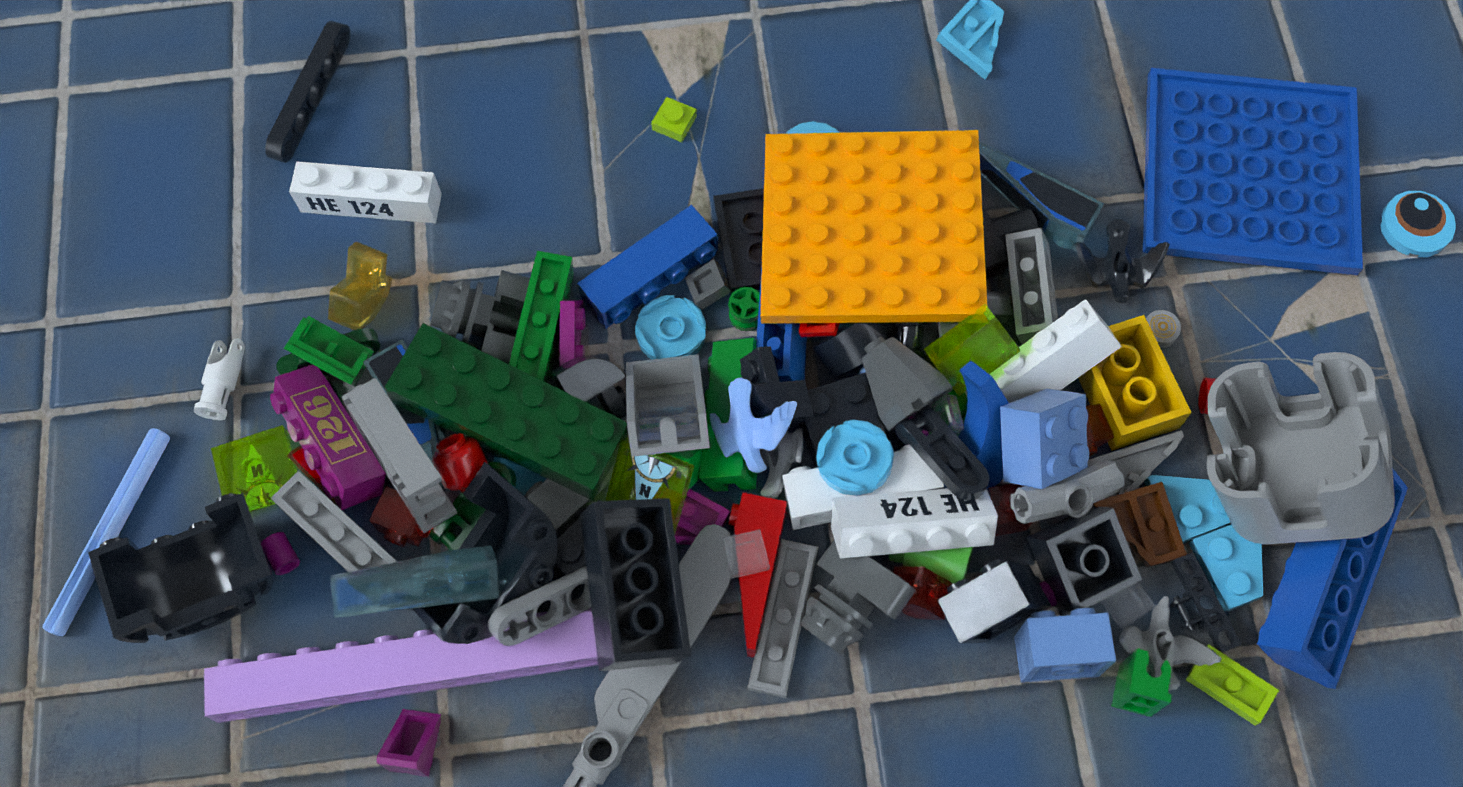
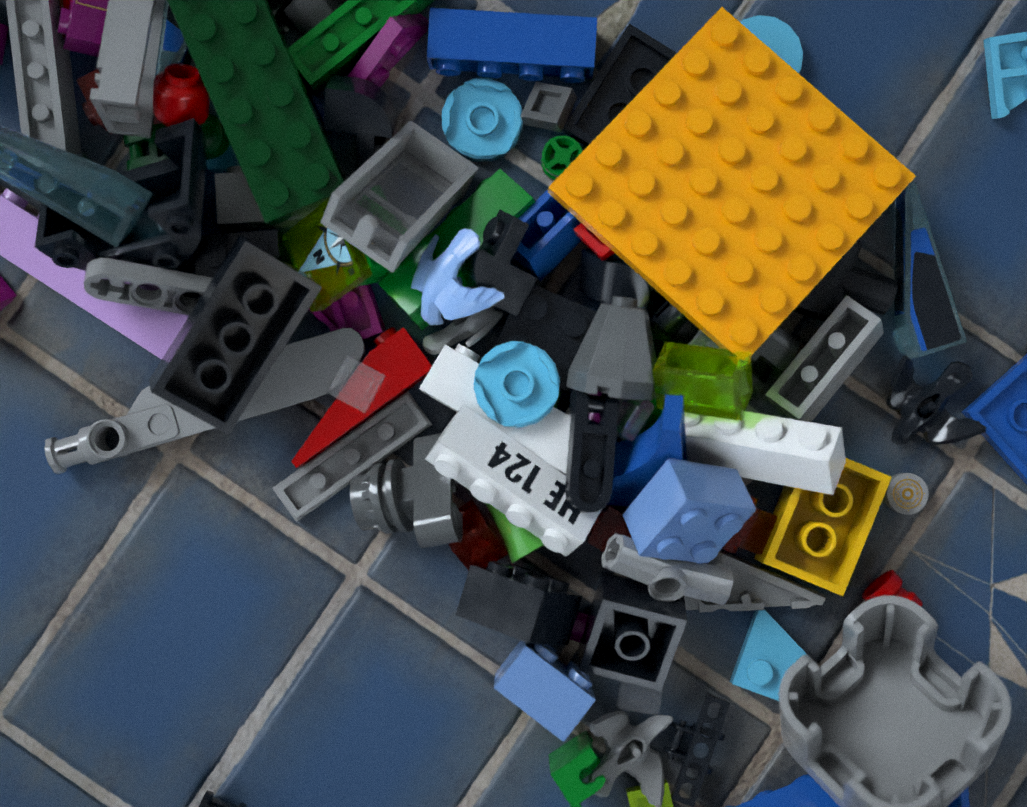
camera: 40 degrees right, 20 degrees up
(1147, 523) = (716, 645): reddish brown wing -> none
(1231, 565) = (751, 738): medium azure wing -> none

